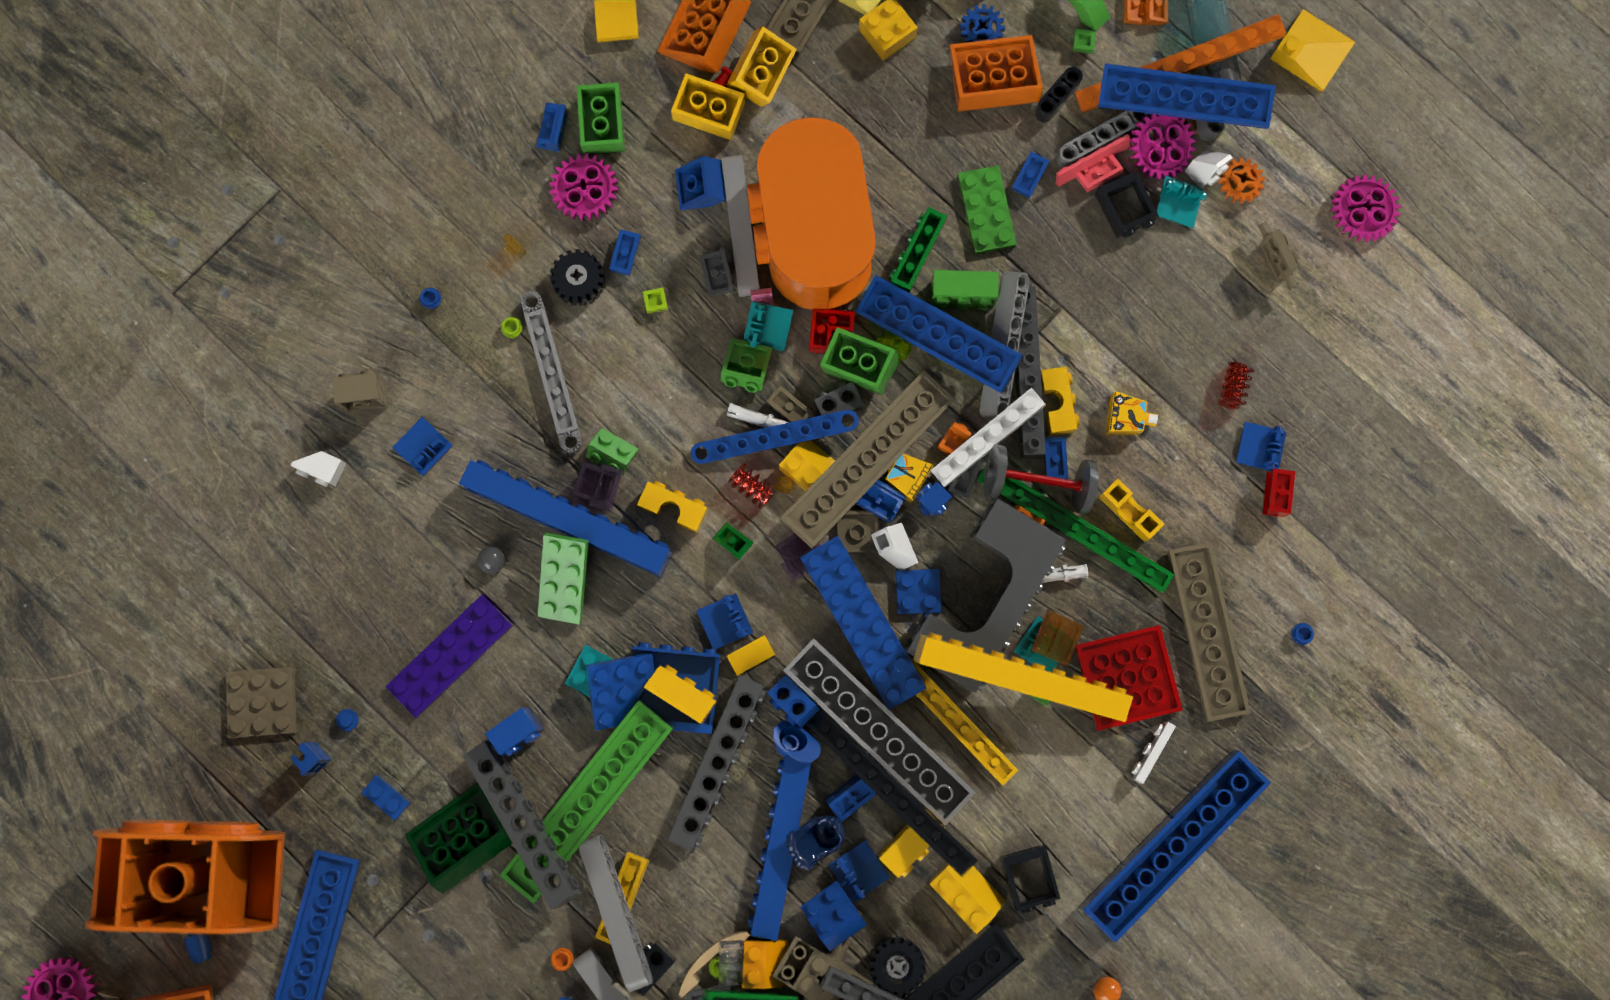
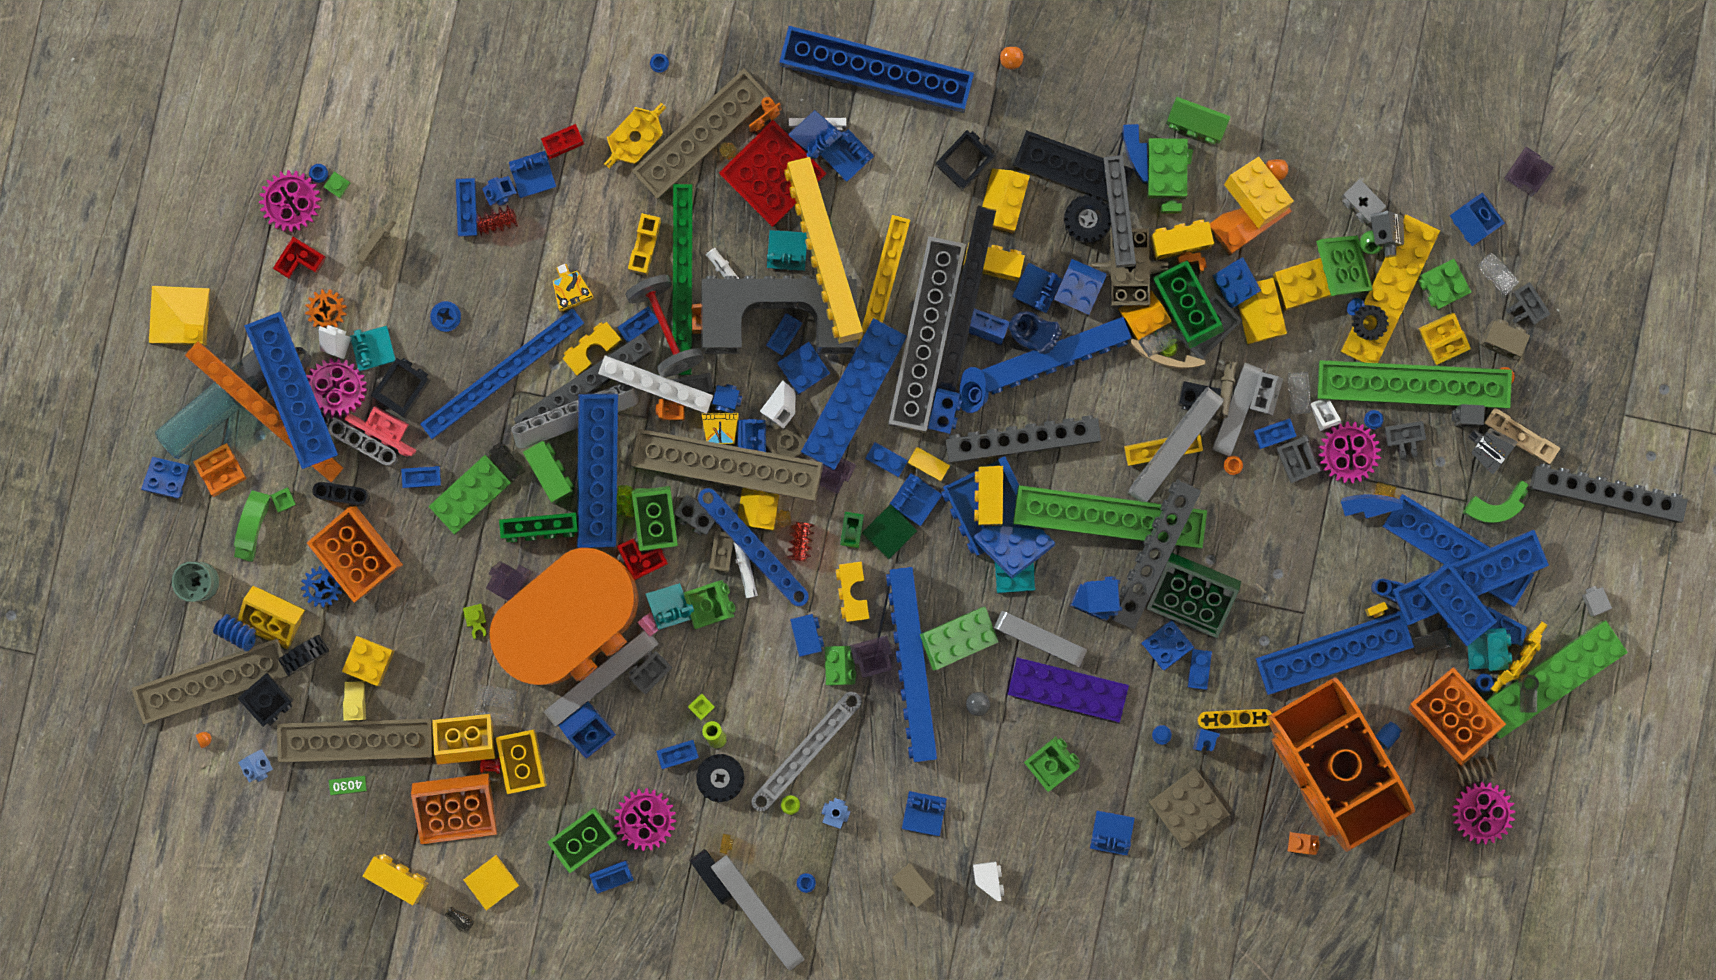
camera: 115 degrees left, 5 degrees up
(152, 793) = (1303, 843): none -> orange bracket
(286, 613) = (1112, 833): none -> blue hinge
(312, 800) = (1235, 722): none -> yellow beam
(387, 596) = (1052, 763): none -> bright green plate
(428, 780) = (1167, 645): none -> blue hinge
(429, 234) = (757, 912): none -> light grey beam
(475, 362) = (832, 820): none -> medium blue brick
(491, 217) = (702, 863): none -> black beam
(506, 743) = (1104, 596): none -> blue plate
(514, 659) = (1040, 638): none -> light grey beam
(619, 293) = (714, 735): none -> lime brick
(659, 437) = (806, 635): none -> blue brick
(709, 577) = (889, 531): none -> dark green slope
(780, 617) = (886, 459): none -> blue plate
(870, 147) = (475, 617): none -> lime plate
(886, 192) = (507, 581): none -> clear purple plate
(962, 592) = (784, 334): none -> blue plate
(1007, 260) = (501, 454): none -> clear smoke hinge
(1057, 638) = (776, 243): clear orange slope -> none
(1084, 306) = (502, 373): none -> blue plate
(1103, 763) = (847, 155): none -> blue hinge
(1144, 742) = (815, 134): none -> blue hinge
(1170, 276) = (442, 308): none -> blue gear
(1176, 647) = (728, 150): none -> clear yellow plate
(1191, 712) = (771, 112): none -> orange hinge
(1246, 549) = (640, 121): none -> yellow plate
(1264, 404) = (499, 191): none -> blue brick
(1266, 366) = (466, 207): none -> blue plate
(1310, 185) = (296, 253): none -> red brick
(1356, 261) = (337, 185): none -> bright green plate
(1377, 250) = (318, 173): none -> blue plate

